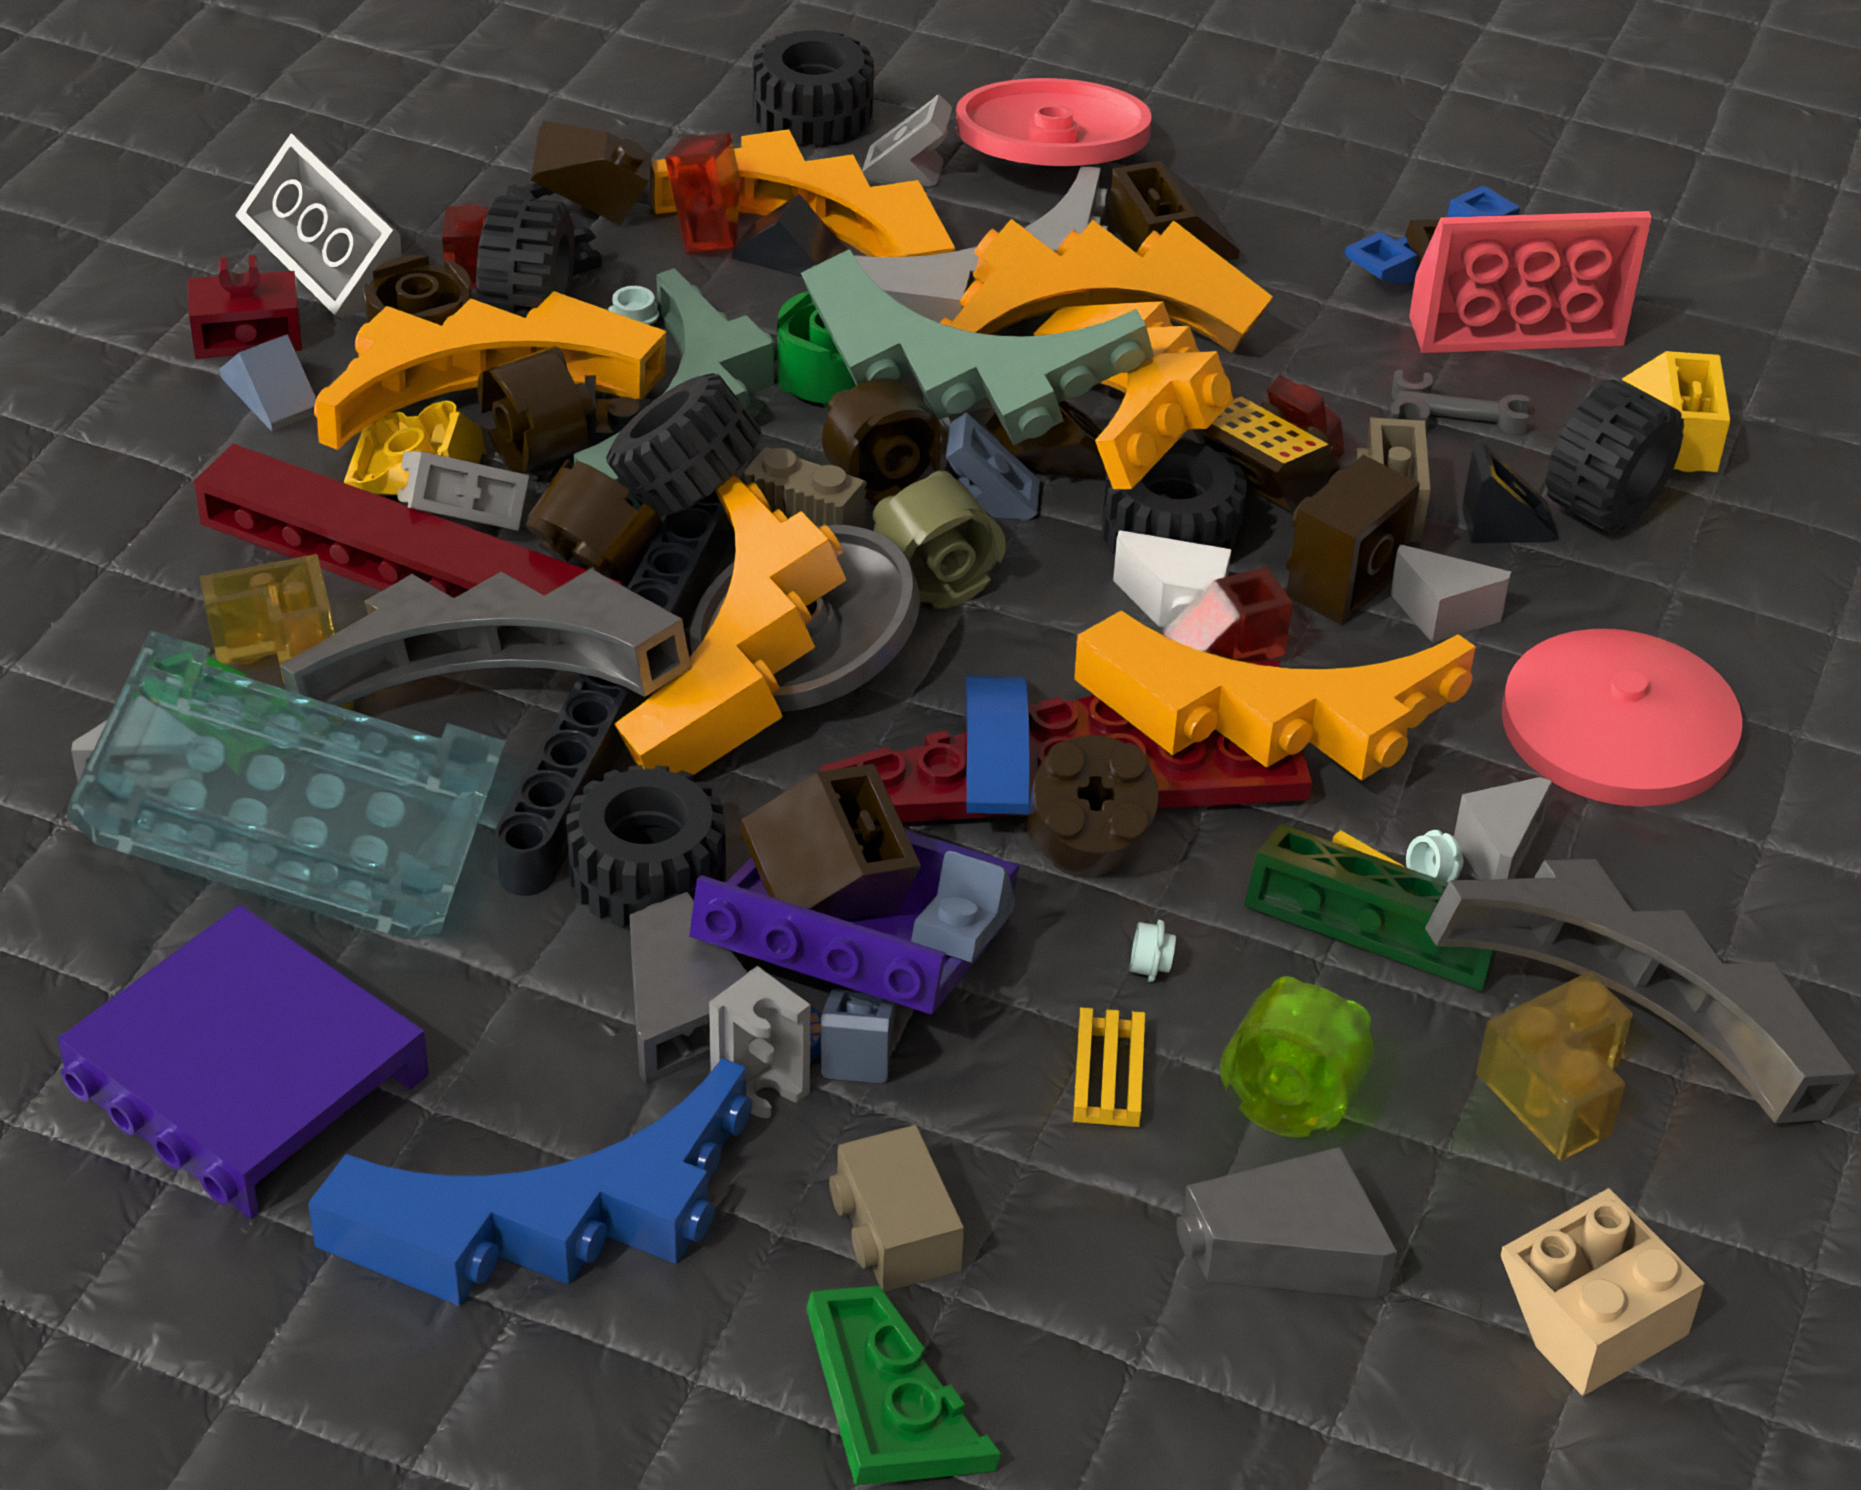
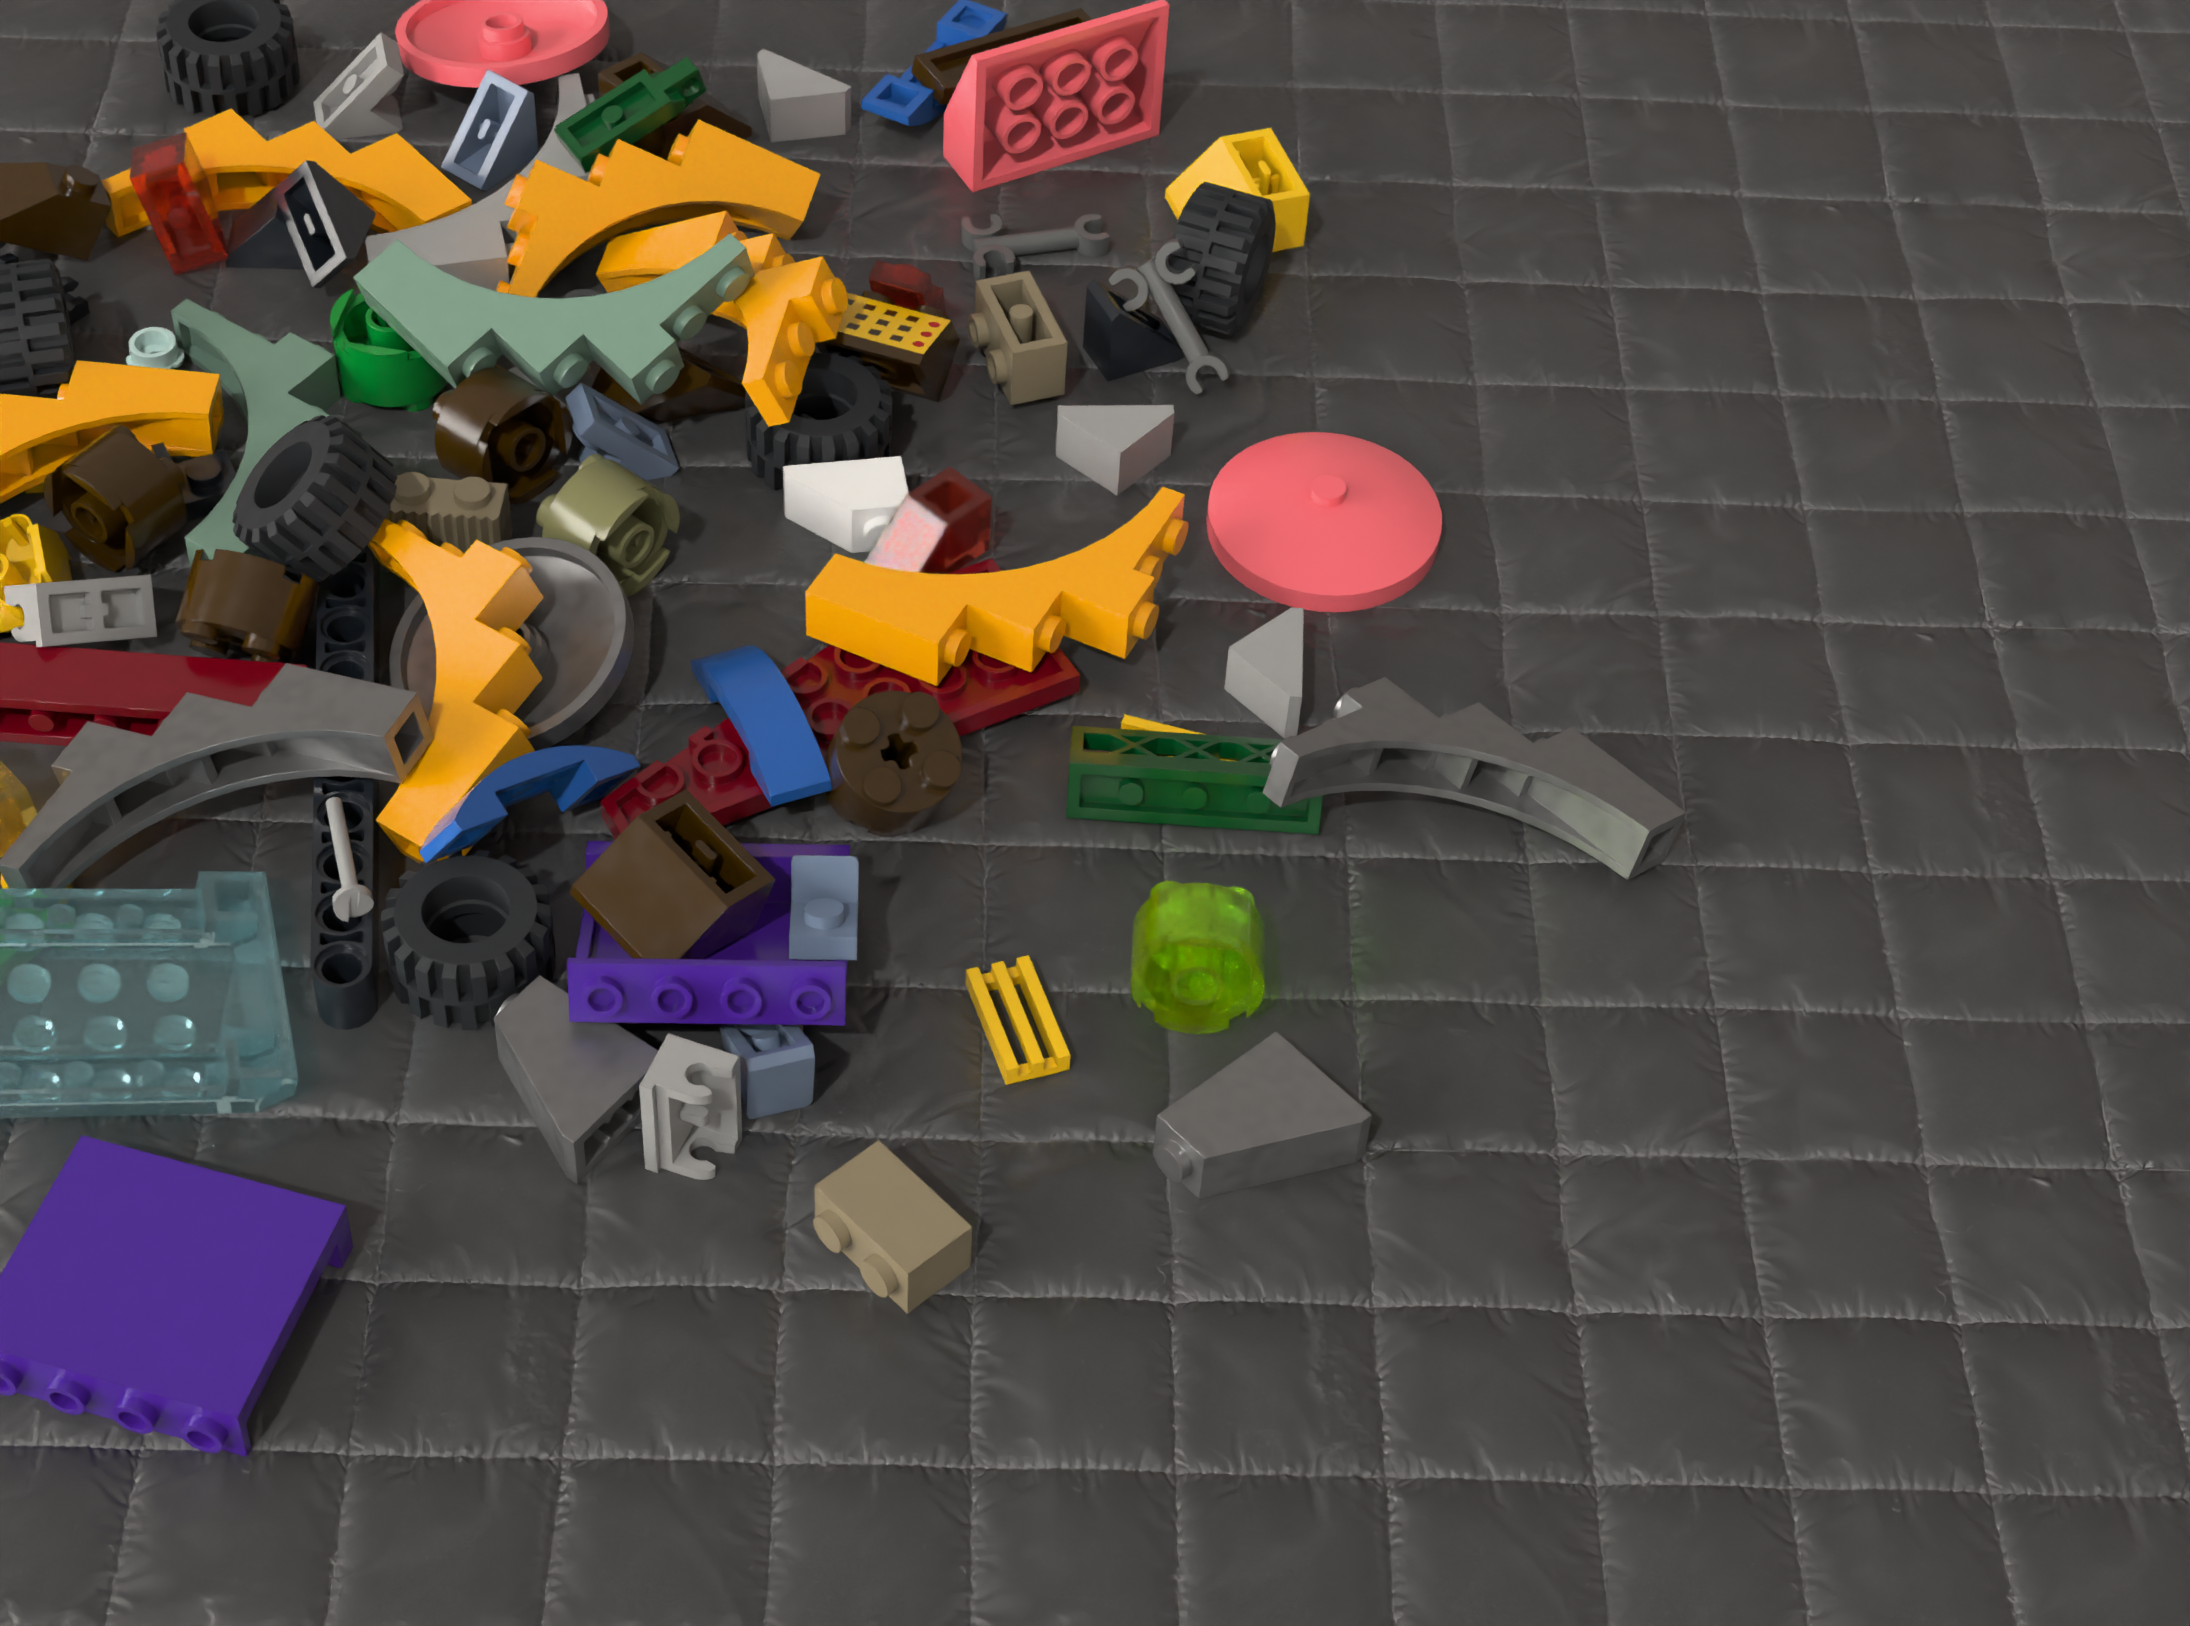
camera: 25 degrees left, 5 degrees up
(551, 1219) = (472, 1397): blue arch -> none
(556, 778) = (351, 898): none -> light grey piece
(803, 733) = (569, 773): none -> blue slope
(817, 229) = (322, 220): none -> black slope
(885, 1396) = (963, 1414): green wing -> none
(1010, 192) = (495, 134): none -> sand blue slope
(1124, 201) = (629, 111): none -> dark green hinge
(1152, 950) = (1005, 890): light aqua plate -> none
(1295, 238) = (800, 100): none -> light grey slope
(1350, 538) = (1009, 411): dark brown brick -> none
(1435, 855) = (1212, 718): light aqua plate -> none
(1537, 455) = (1156, 278): none -> dark grey bar
(1557, 1062) = (1419, 886): clear yellow brick -> none
(1600, 1290) = (1555, 1089): tan slope -> none

